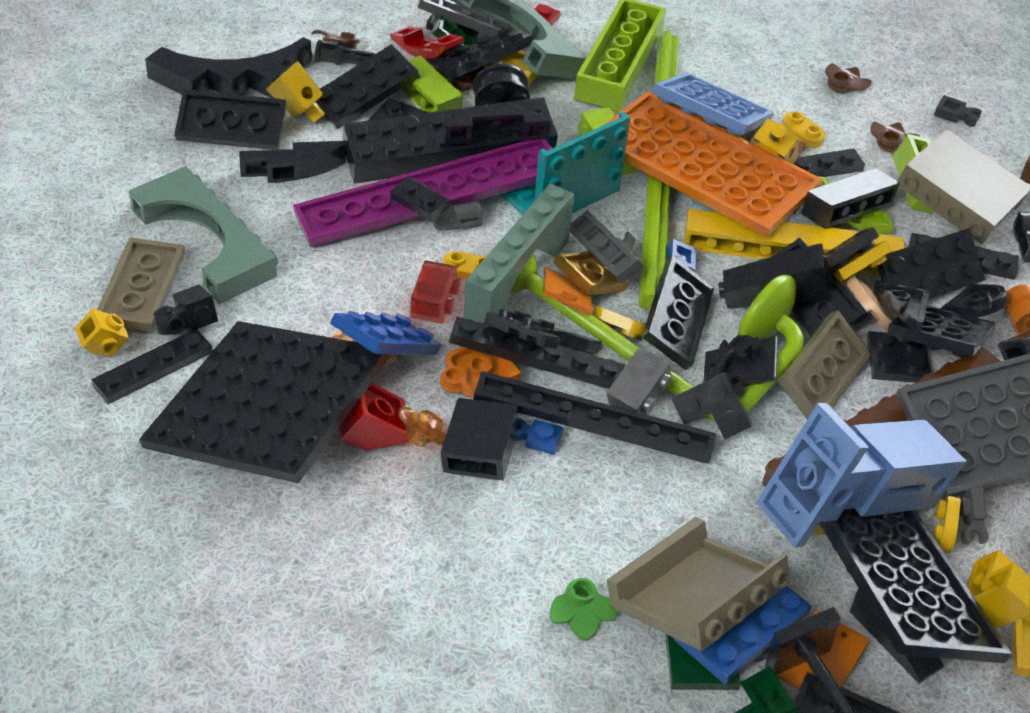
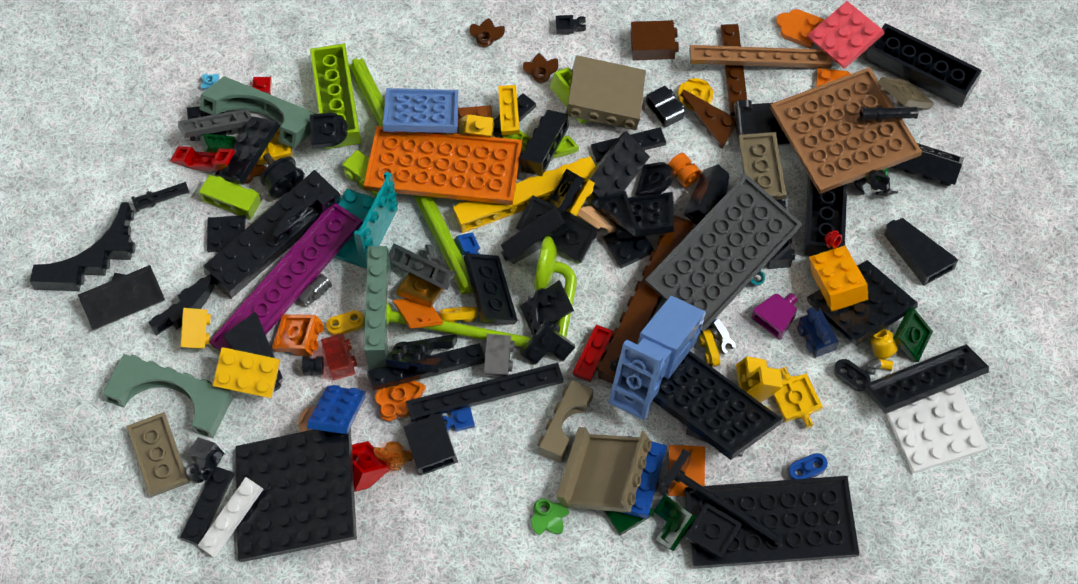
camera: 25 degrees left, 15 degrees up
(101, 333) = (165, 505): yellow brick -> none
(166, 386) = (230, 517): none -> white plate
(285, 180) = (194, 328): none -> yellow brick
(299, 92) = (150, 252): yellow torso -> none
(308, 245) = (246, 372): none -> yellow plate
(336, 232) = (251, 338): none -> black slope
(346, 38) = (140, 187): reddish brown plate -> none
(366, 85) = (188, 220): black plate -> none
(396, 286) = (313, 365): none -> black wheel
(403, 247) = (298, 334): none -> orange plate
(419, 199) = (288, 295): black plate -> none
(586, 69) = (327, 130): none -> black tile
(710, 488) = (575, 400): none -> dark tan arch
(753, 457) = (592, 353): none -> red plate
(804, 129) = (482, 93): yellow plate -> none
(825, 149) = (508, 110): none -> yellow plate
(825, 365) = (594, 281): dark tan plate -> none

